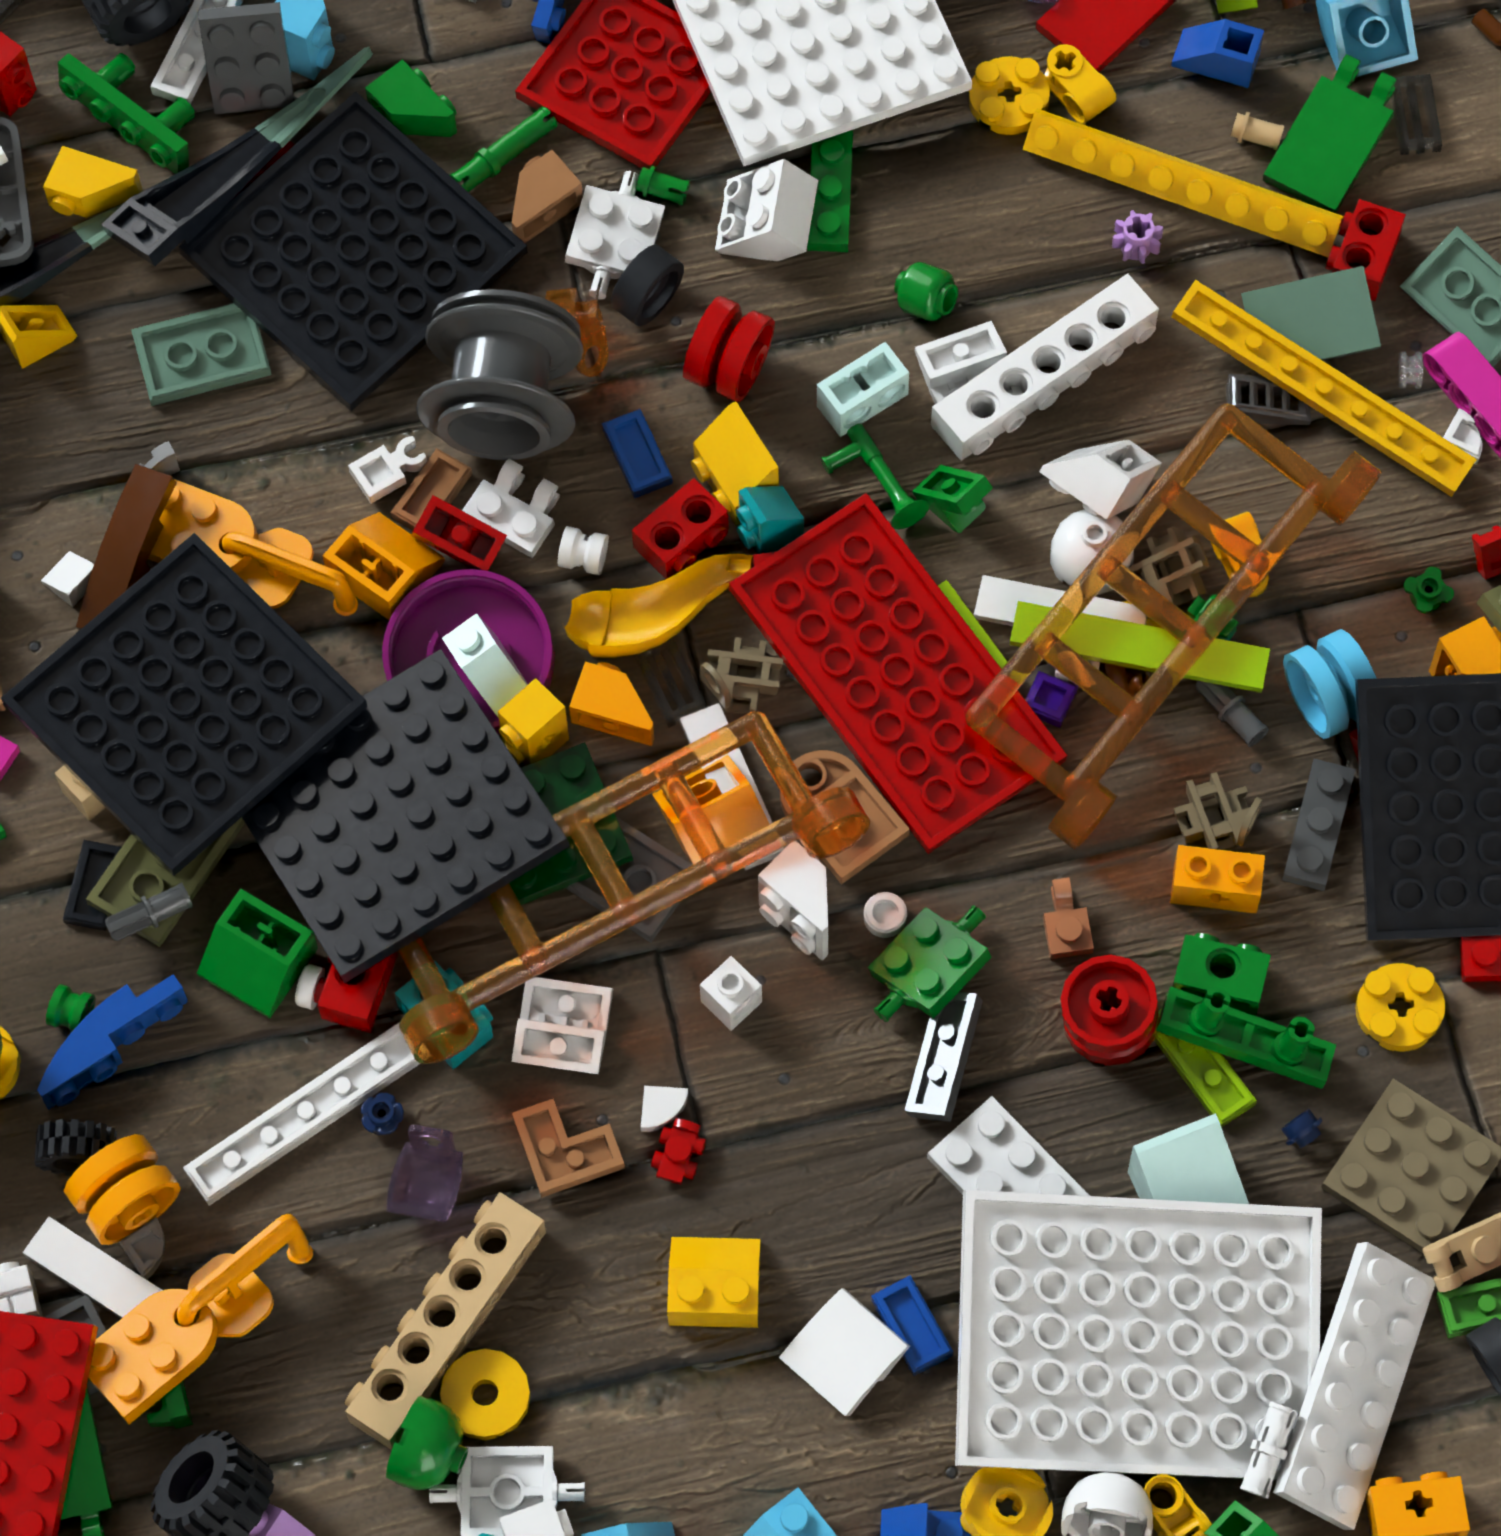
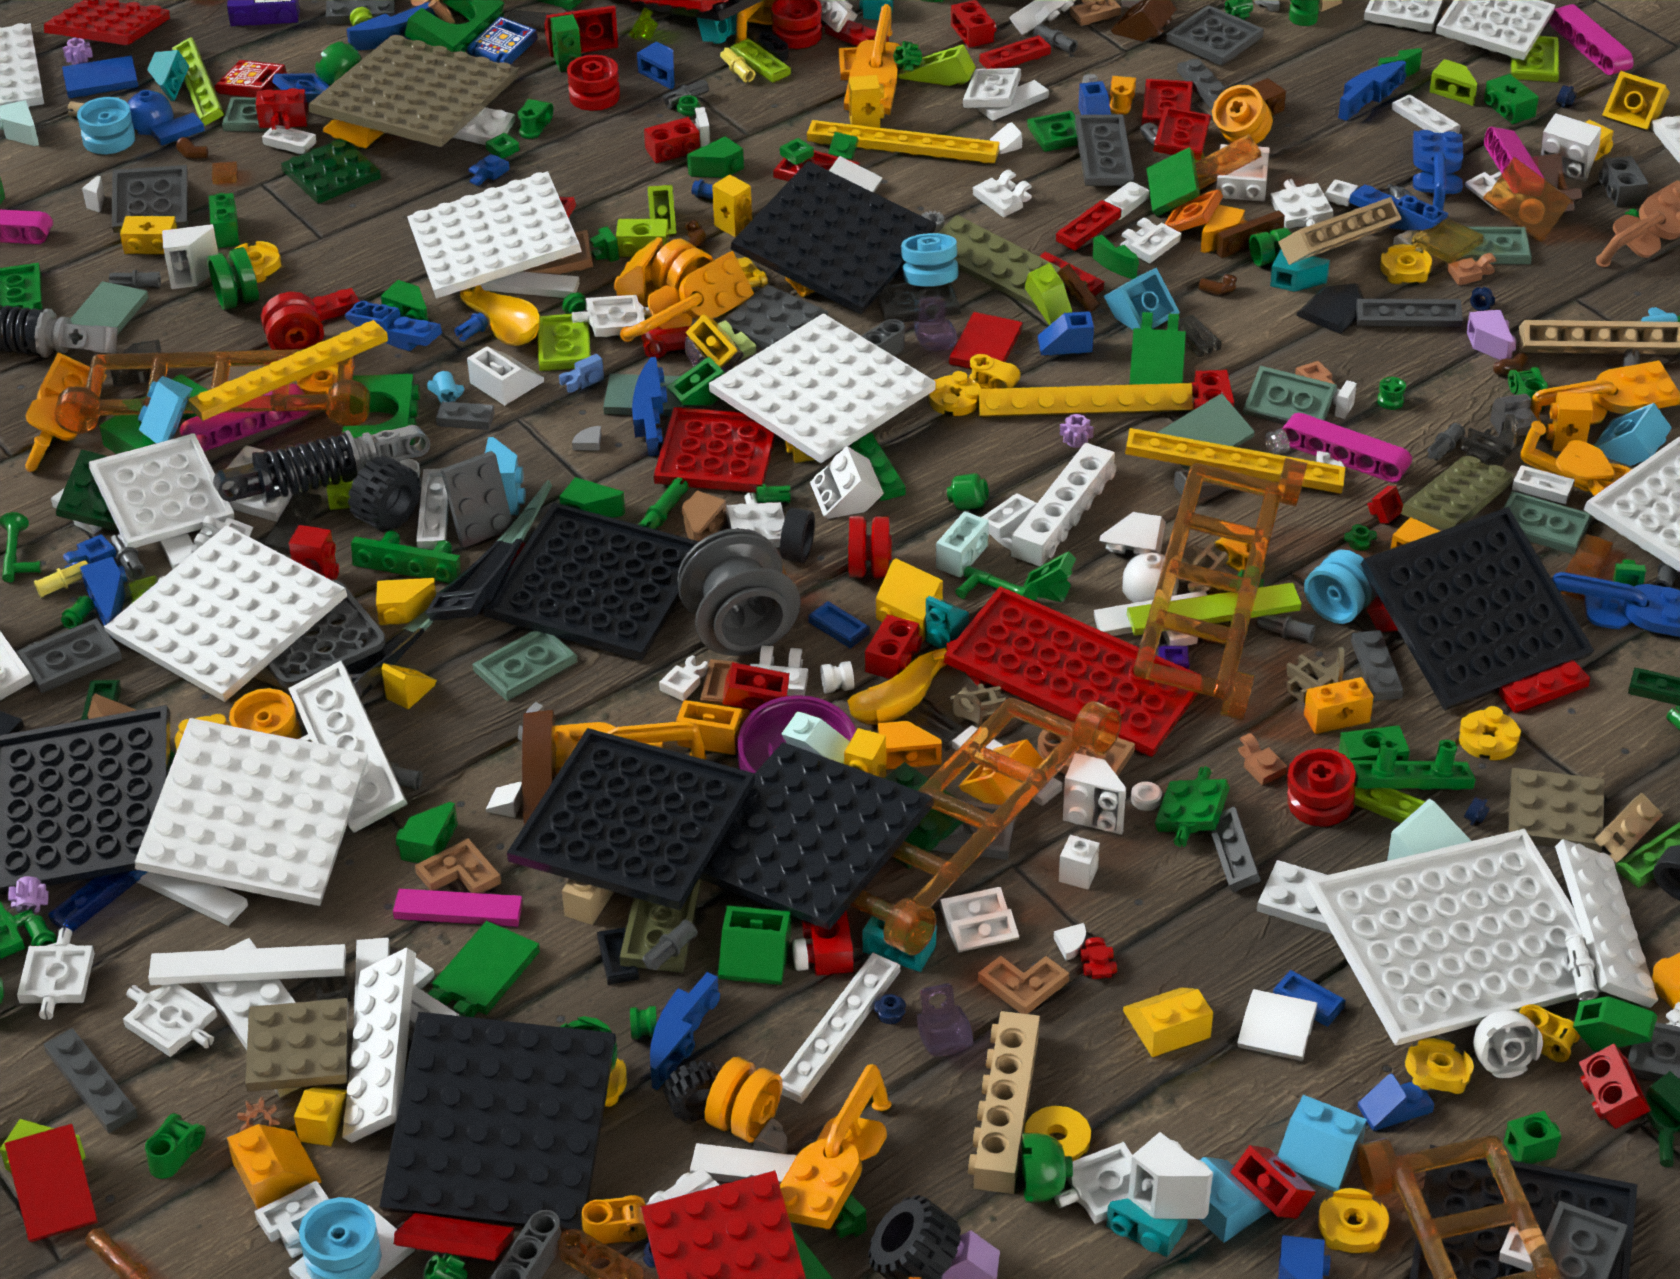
camera: 25 degrees left, 25 degrees down
(1257, 131) = (1111, 366): tan pin -> none

